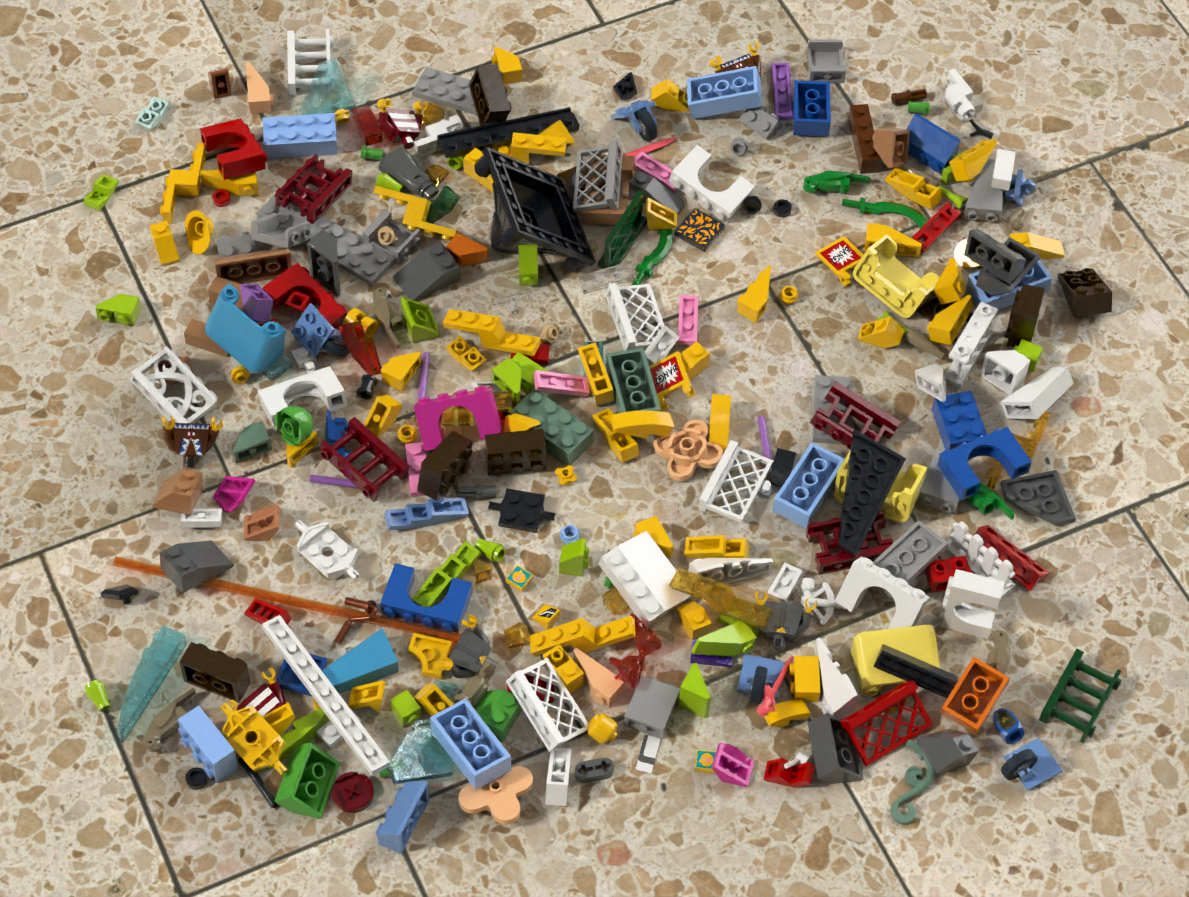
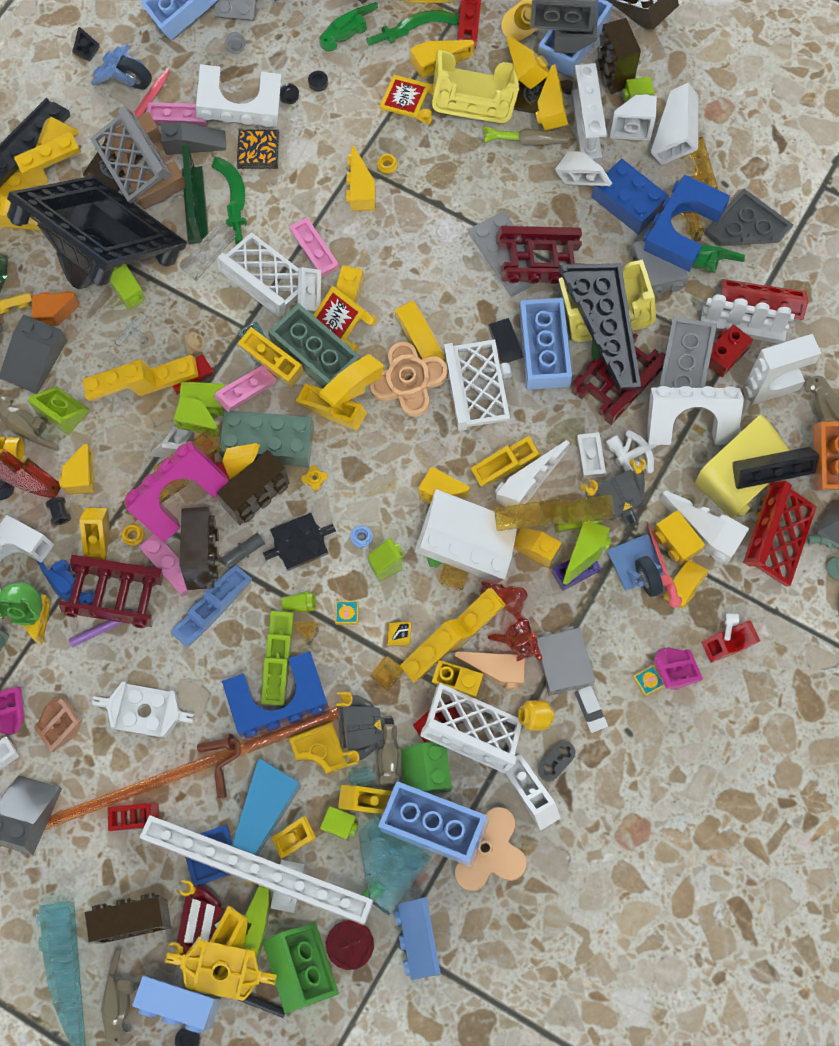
camera: 30 degrees left, 15 degrees up
(97, 694) = (25, 1023): lime cone -> none
(423, 375) = (105, 464): medium lavender bar -> none
(464, 354) = (129, 415): yellow slope -> none
(659, 216) = (213, 157): yellow slope -> none
(669, 97) = (135, 30): yellow slope -> none
(694, 693) = (596, 622): lime slope -> none
(764, 437) = (480, 334): medium lavender bar -> none
(833, 751) = (754, 593): dark grey slope -> none
(881, 333) = (498, 150): yellow slope -> none

